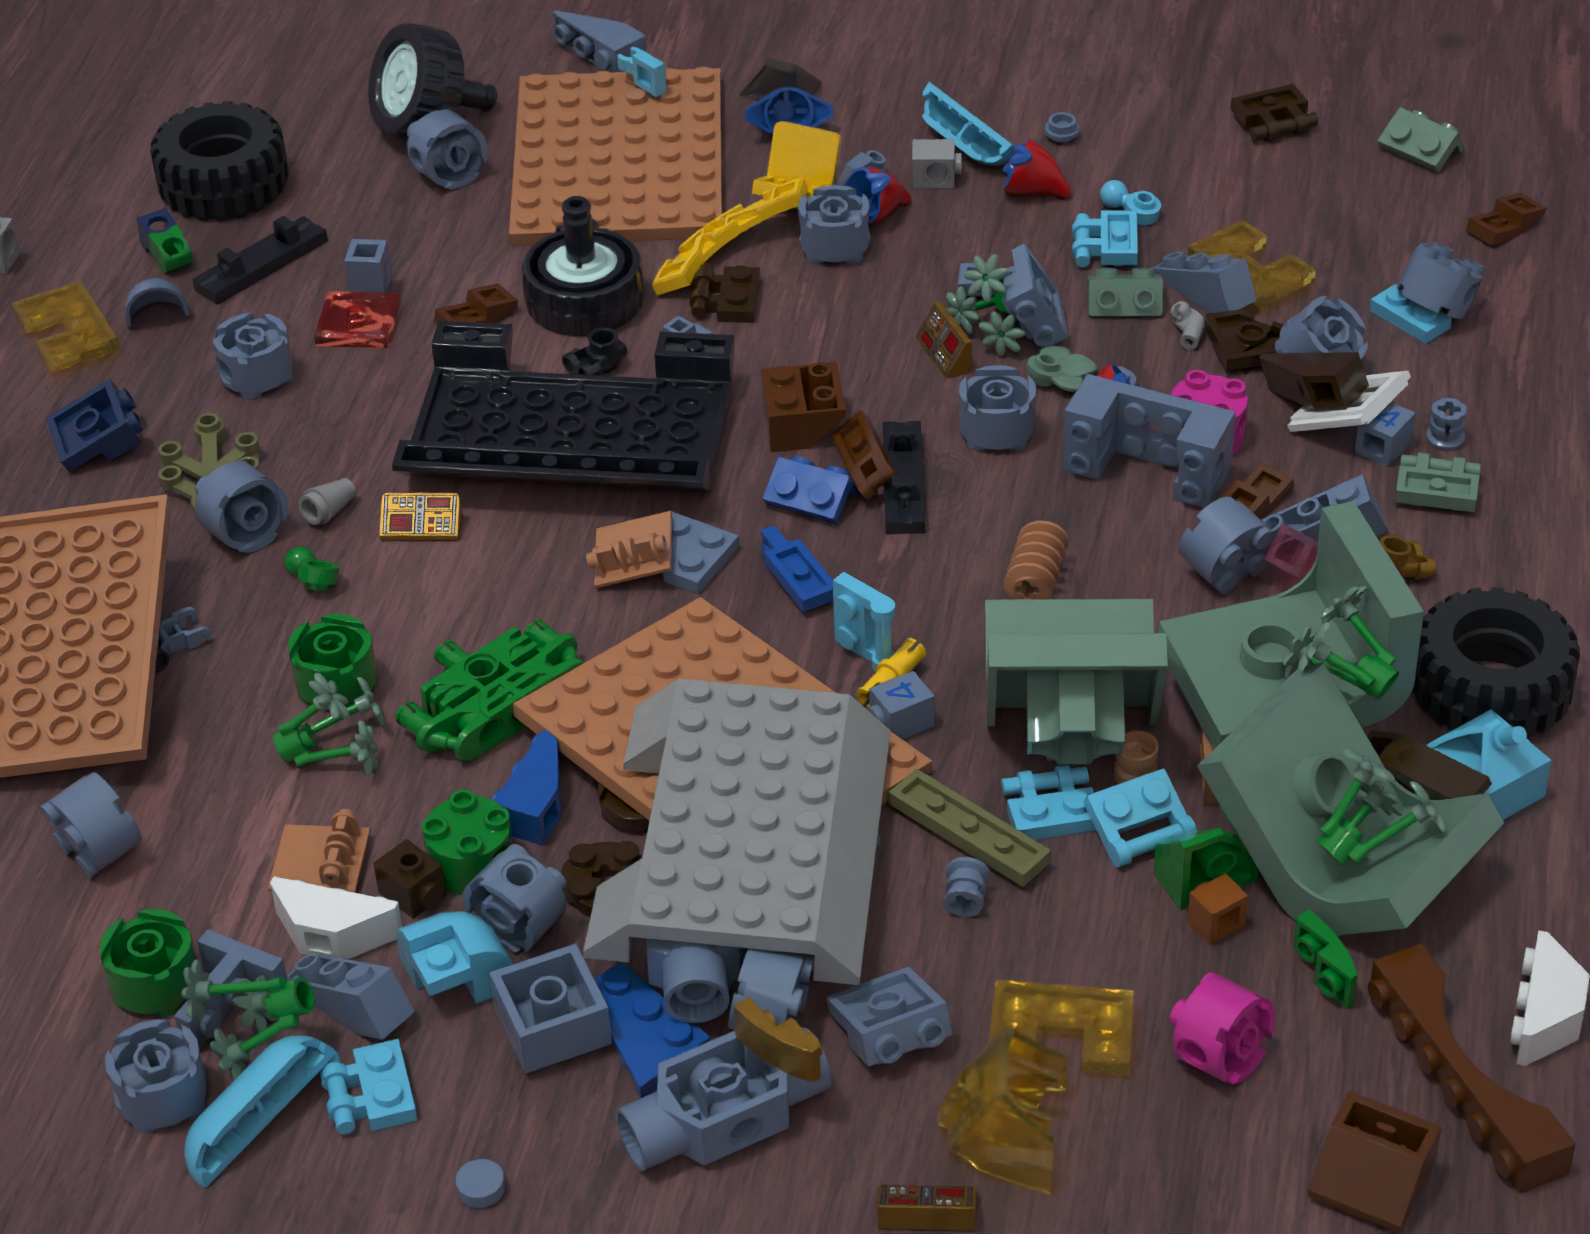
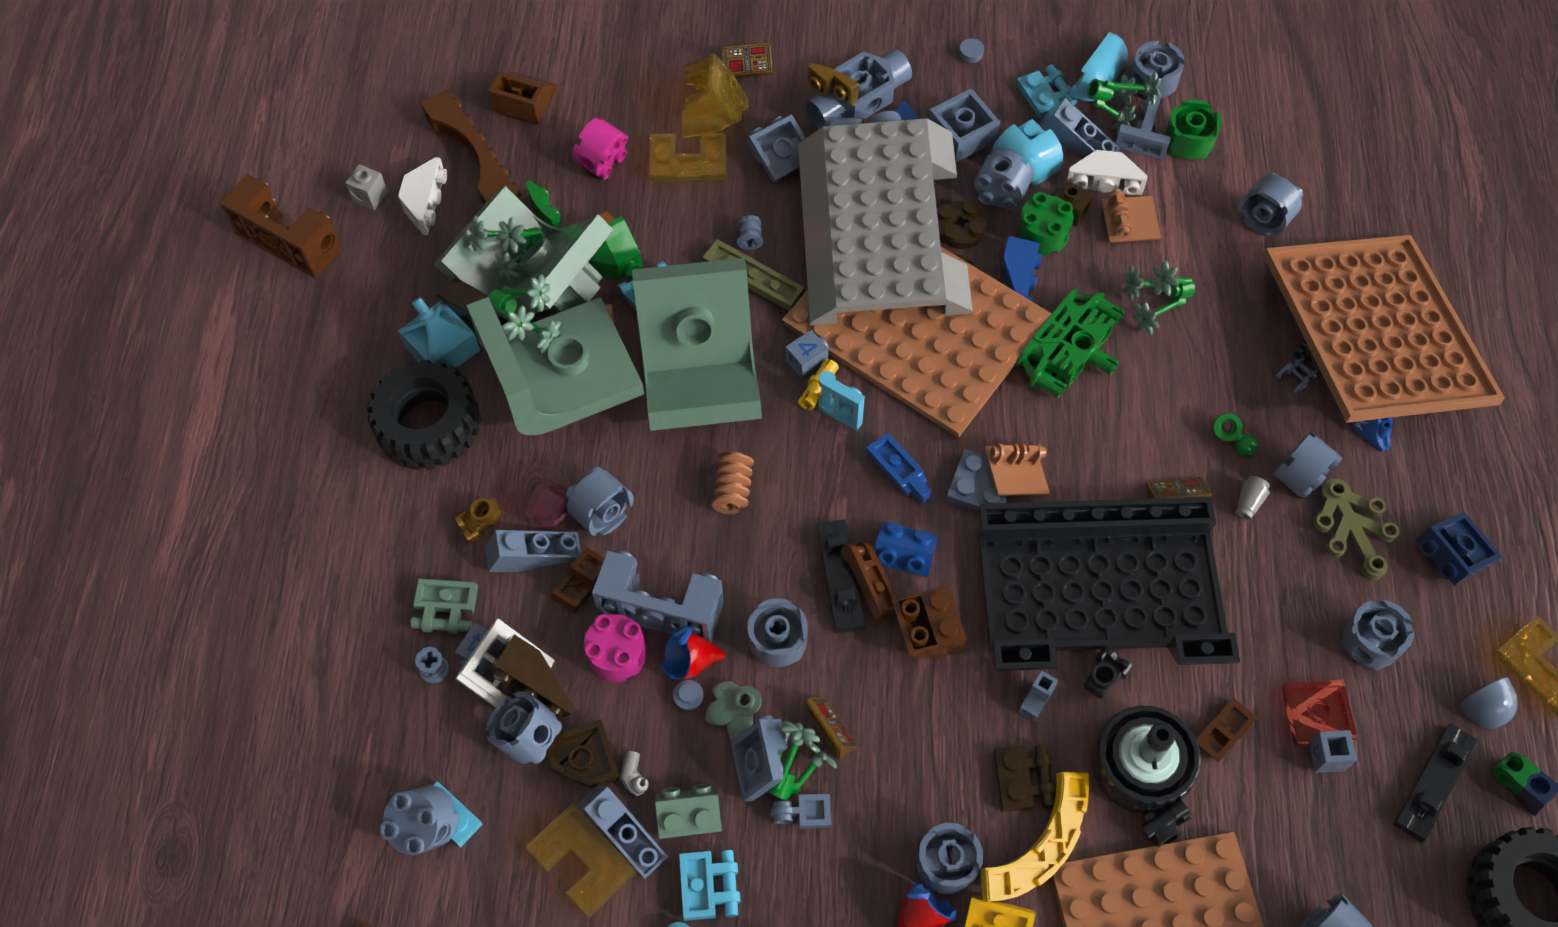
camera: 170 degrees right, 20 degrees up
(338, 651) = (1181, 342): green brick -> none

